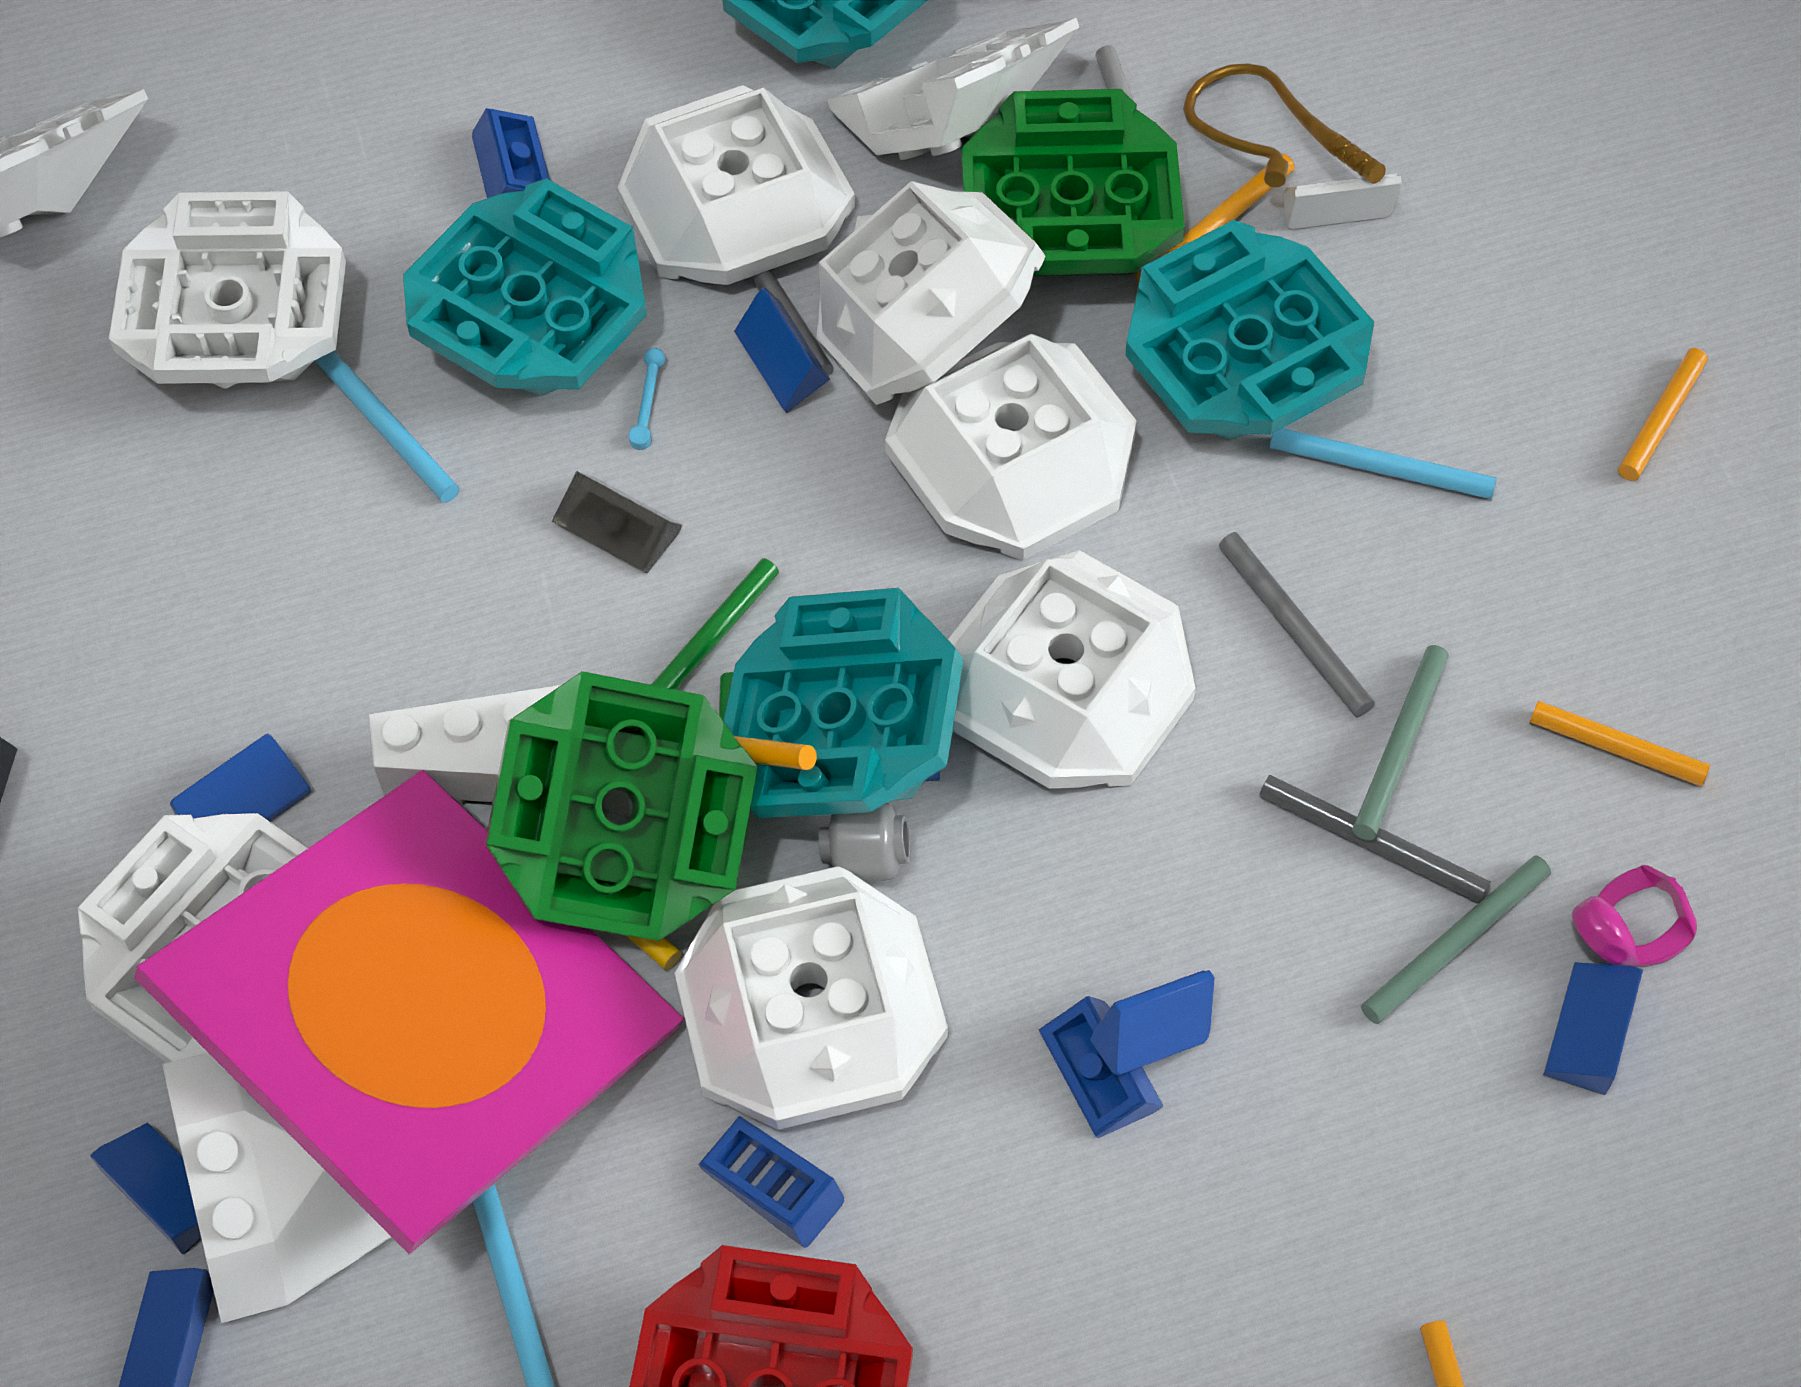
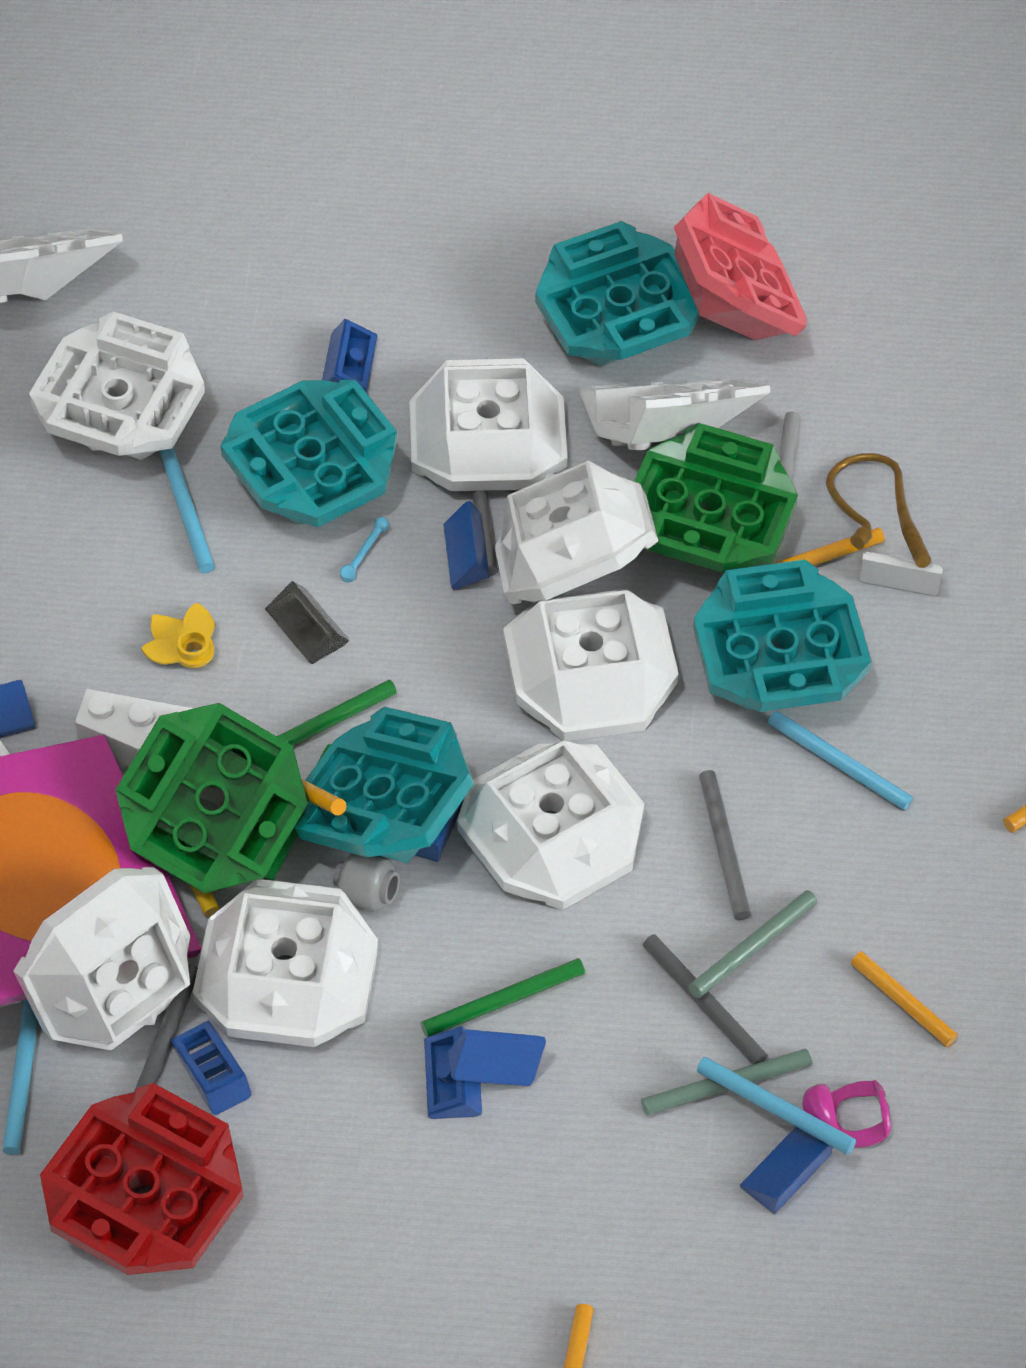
camera: 20 degrees right, 5 degrees down
(452, 600) = (177, 637): none -> yellow plate
(583, 1095) = (107, 960): none -> white piece
(687, 1158) = (166, 1032): none -> dark grey bar
(1114, 935) = (502, 997): none -> green bar
(1549, 948) = (776, 1105): none -> medium azure bar

